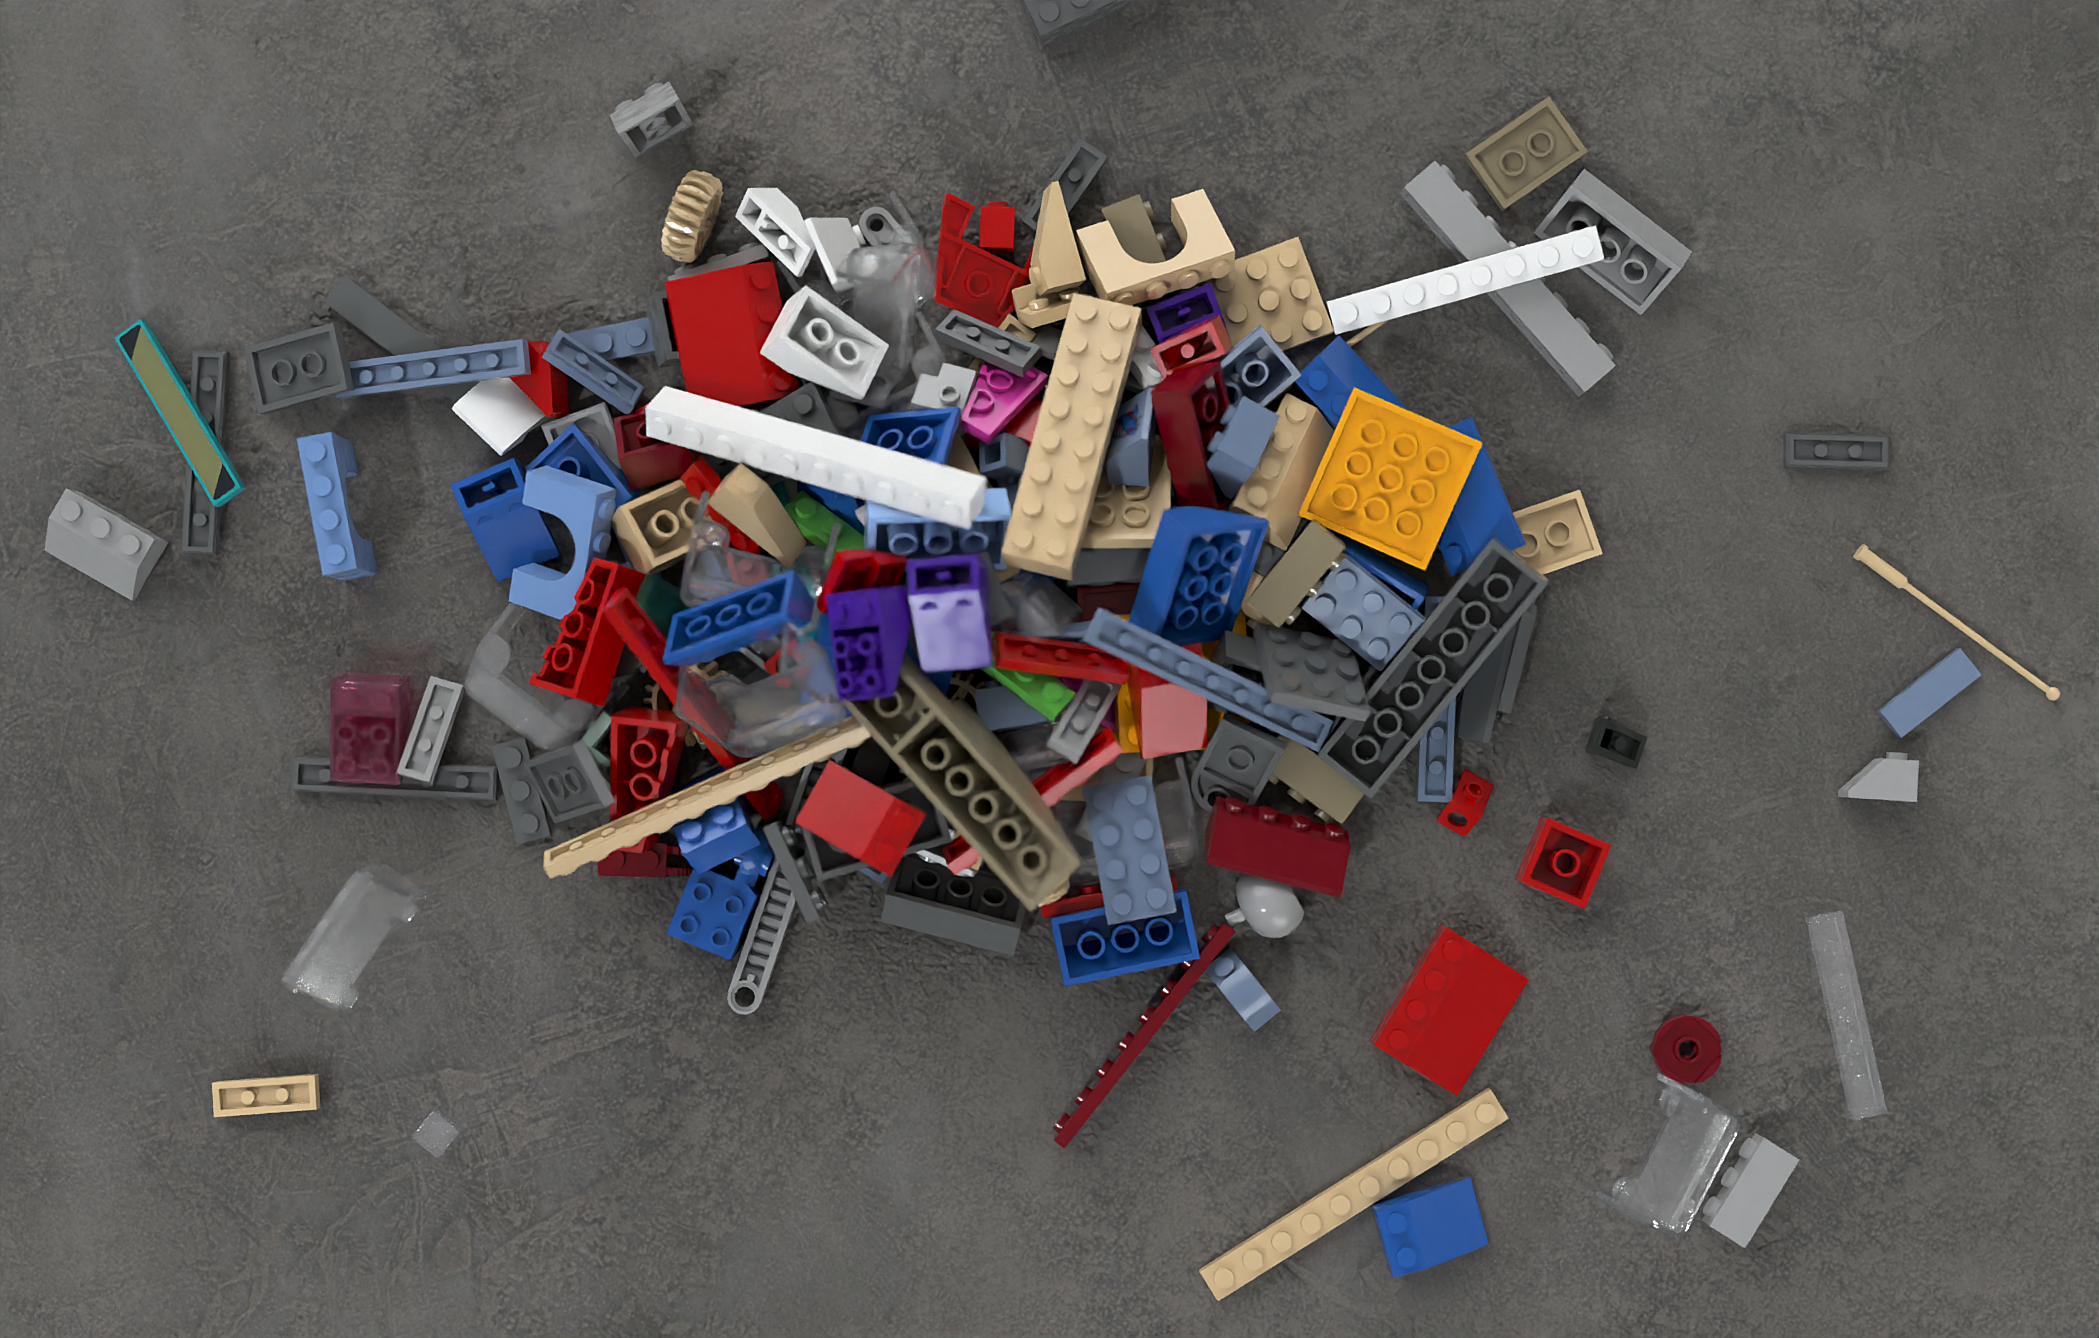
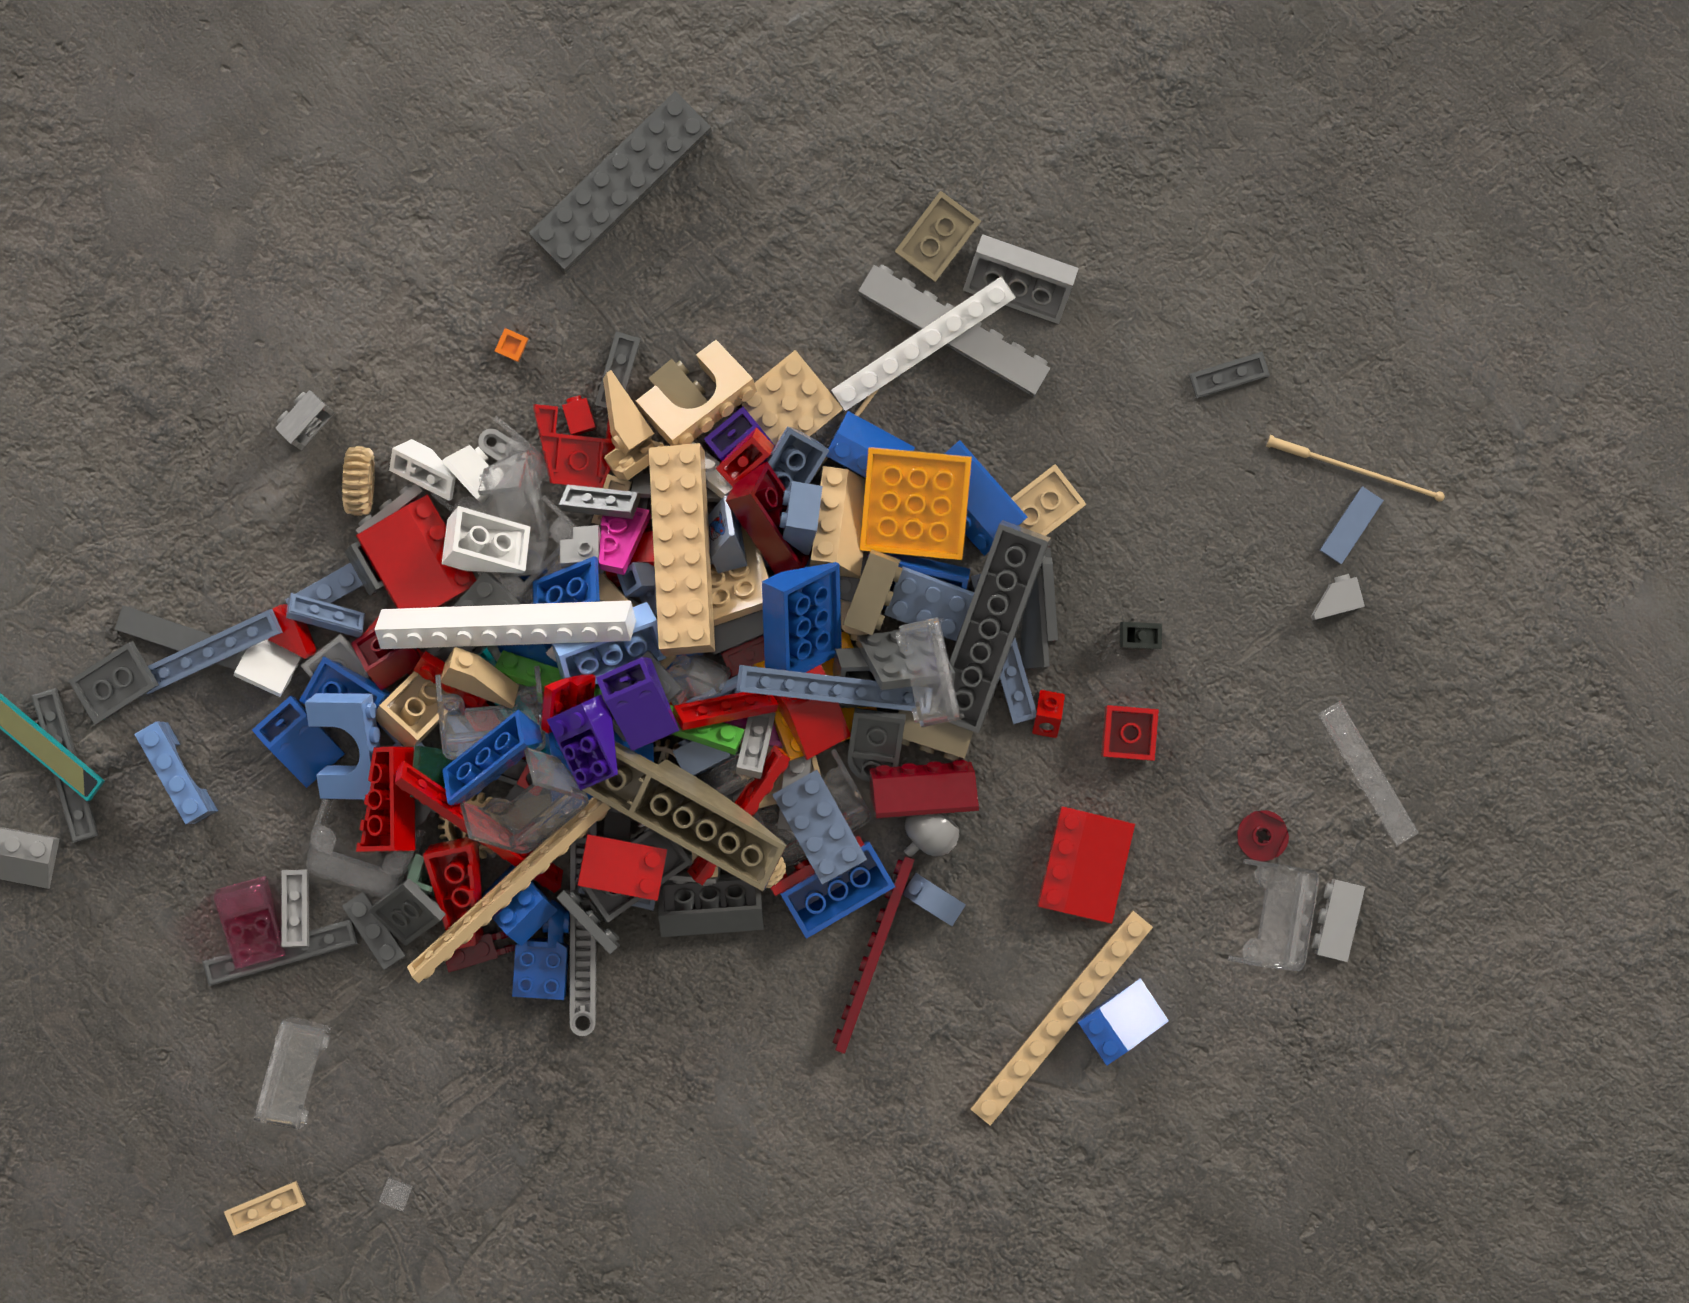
camera: 25 degrees left, 0 degrees up
(942, 112) = (511, 345): none -> orange plate
(1339, 699) = (929, 672): none -> clear windscreen

